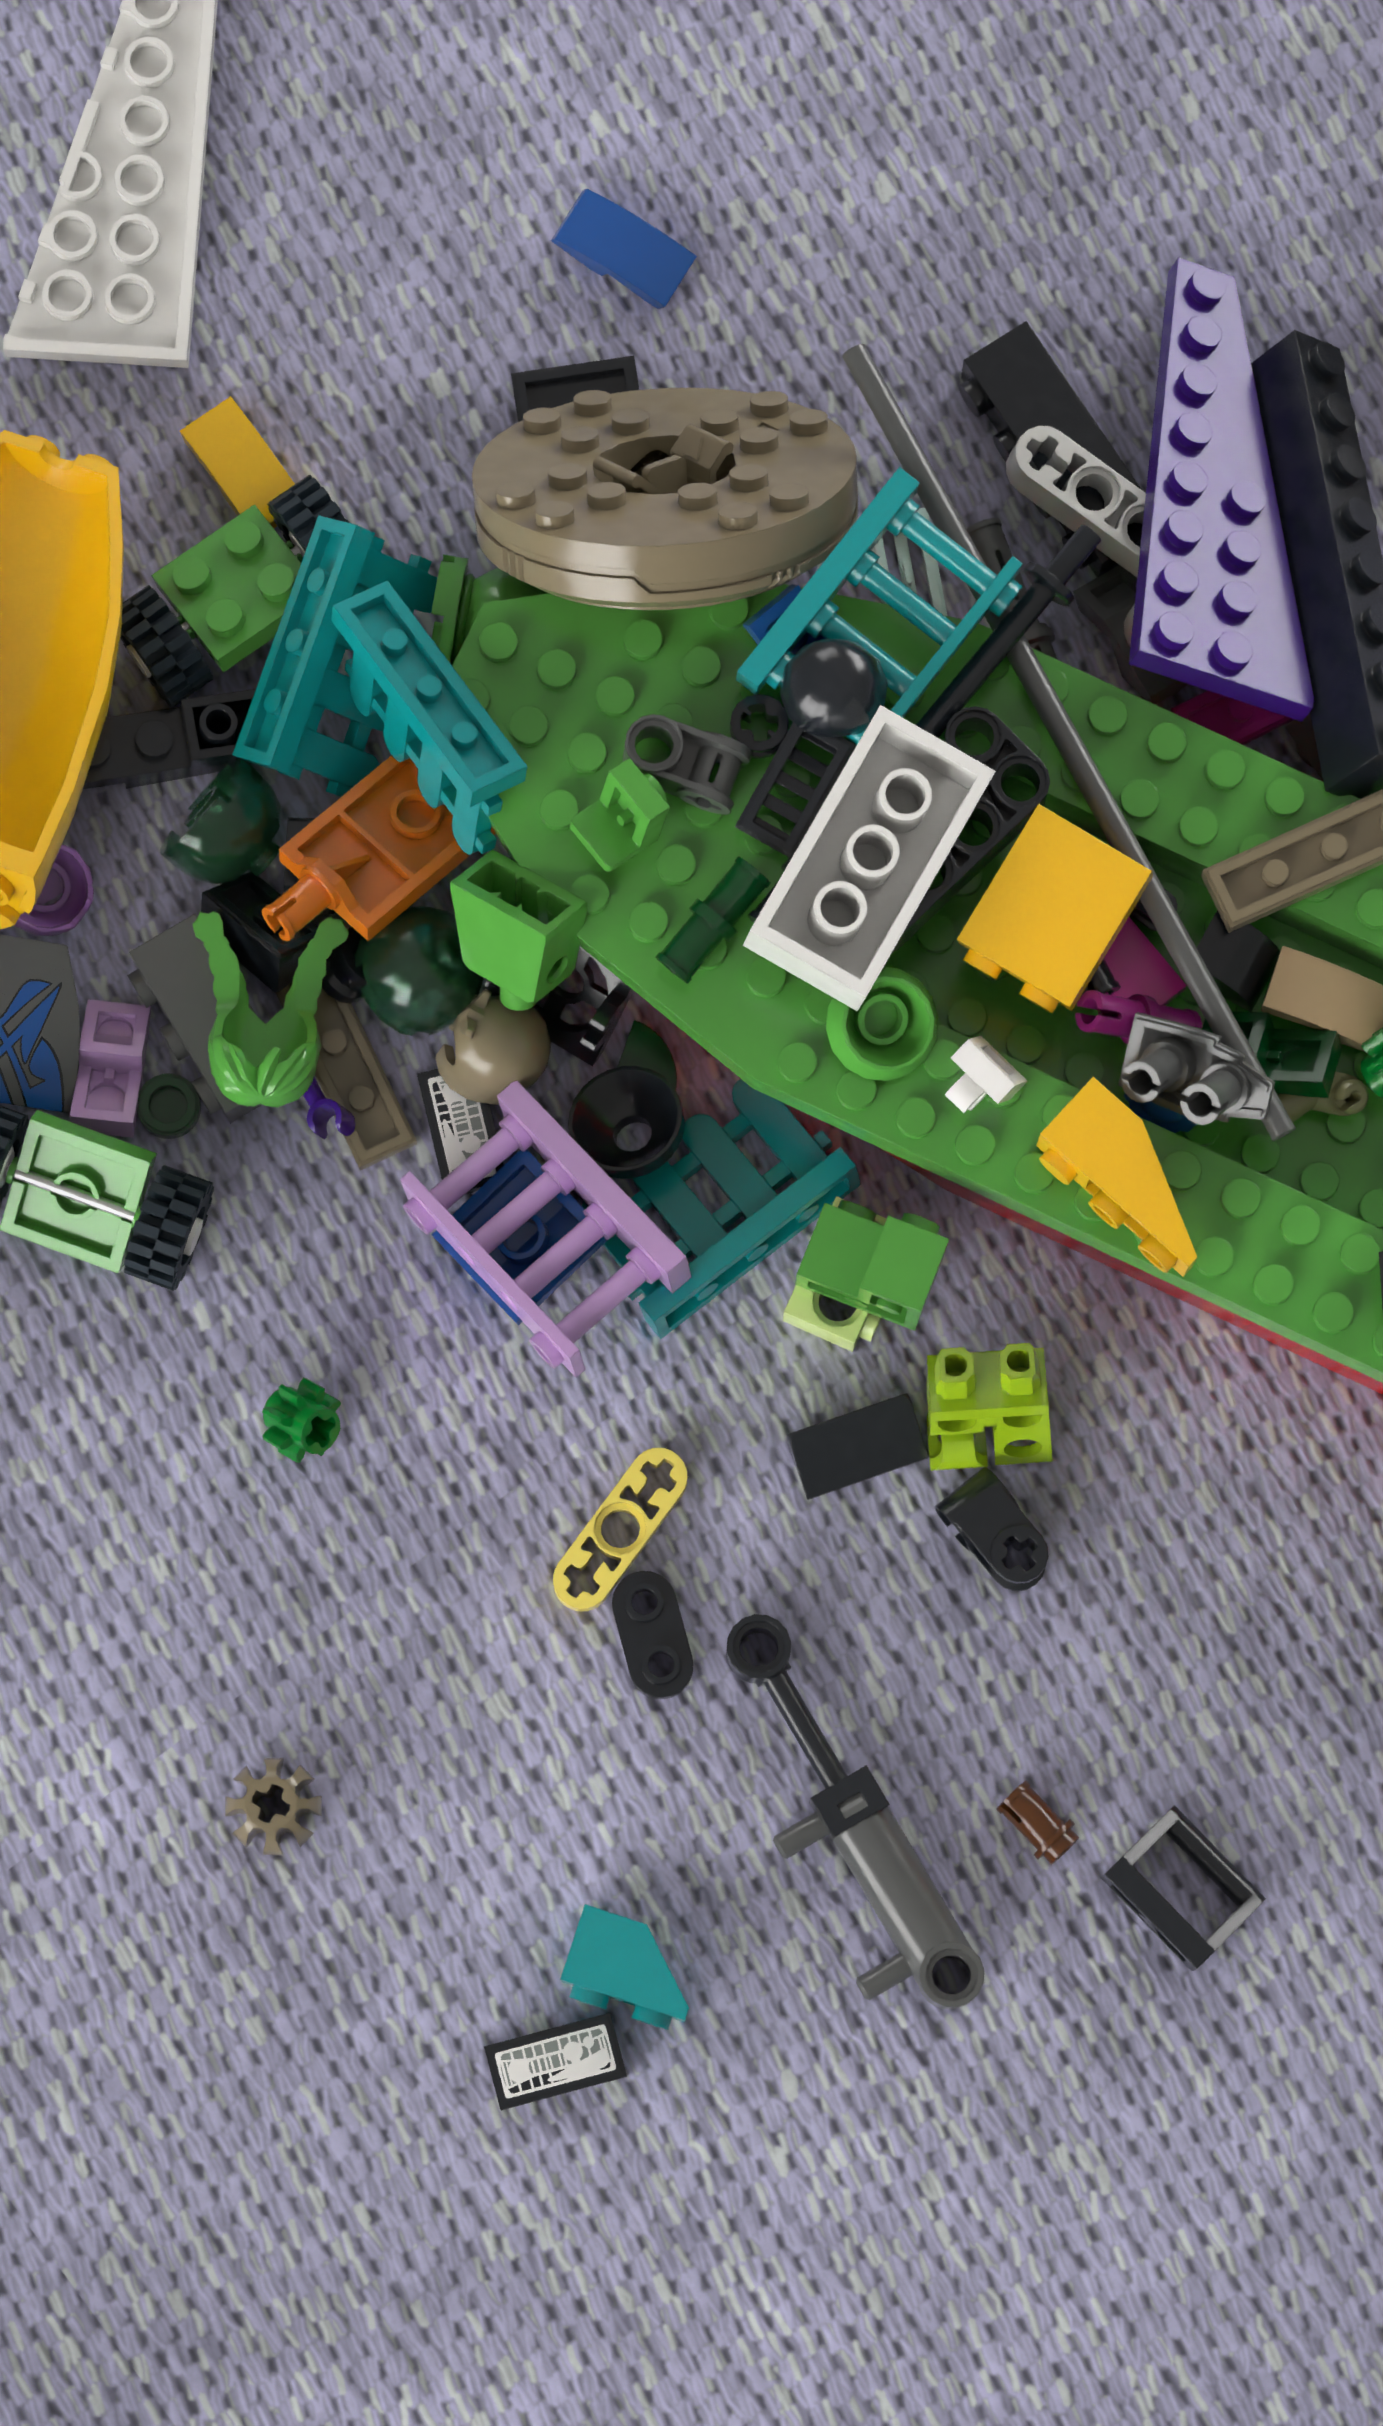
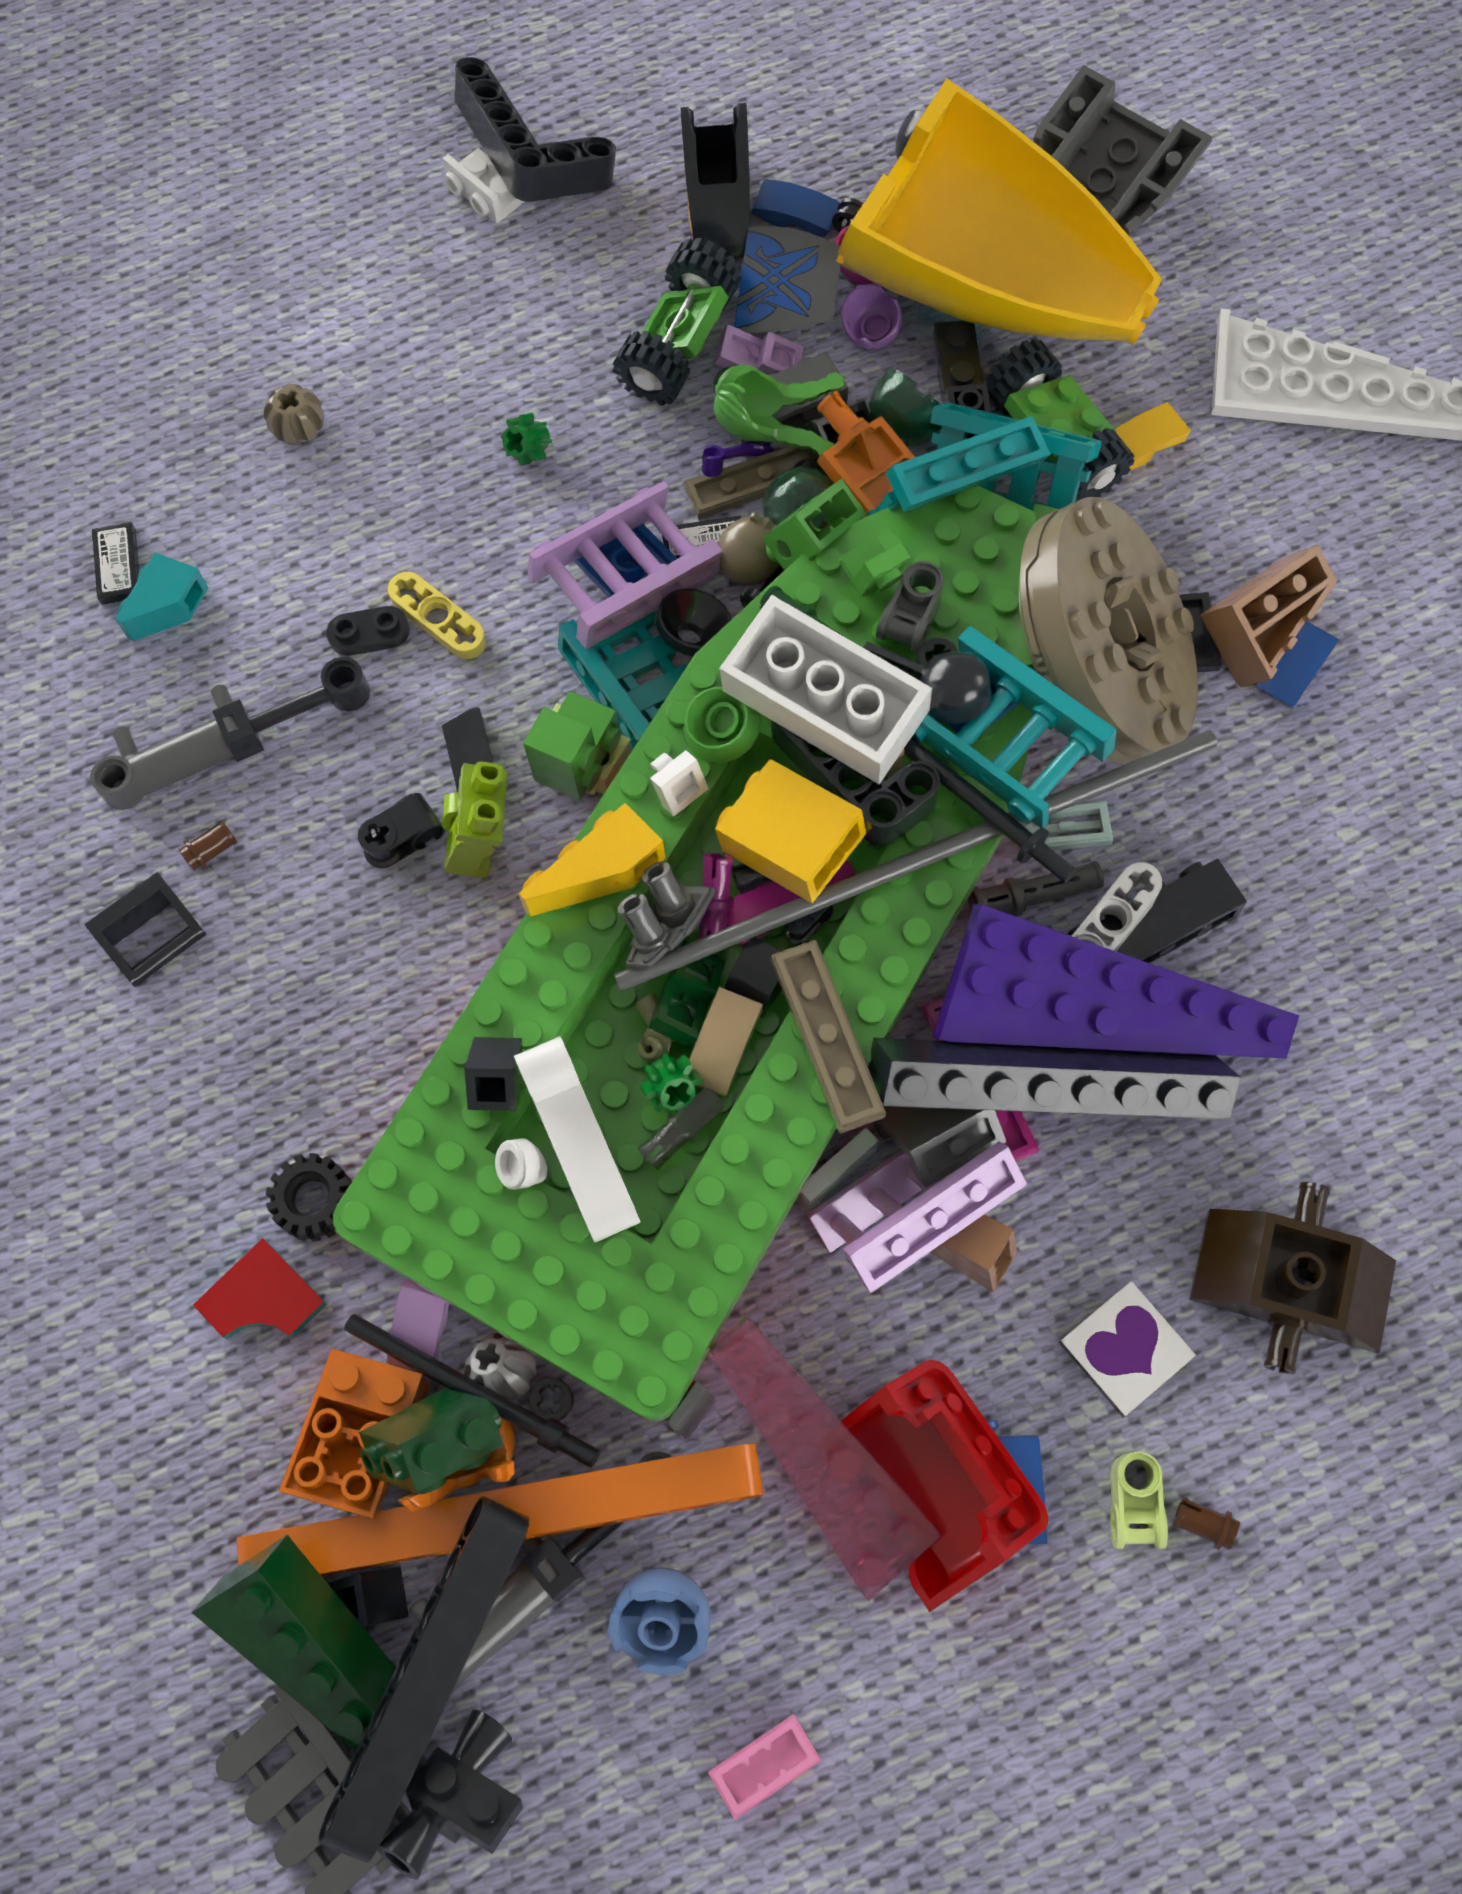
camera: 100 degrees right, 10 degrees down
(555, 287) = (1267, 612): none -> medium nougat wedge

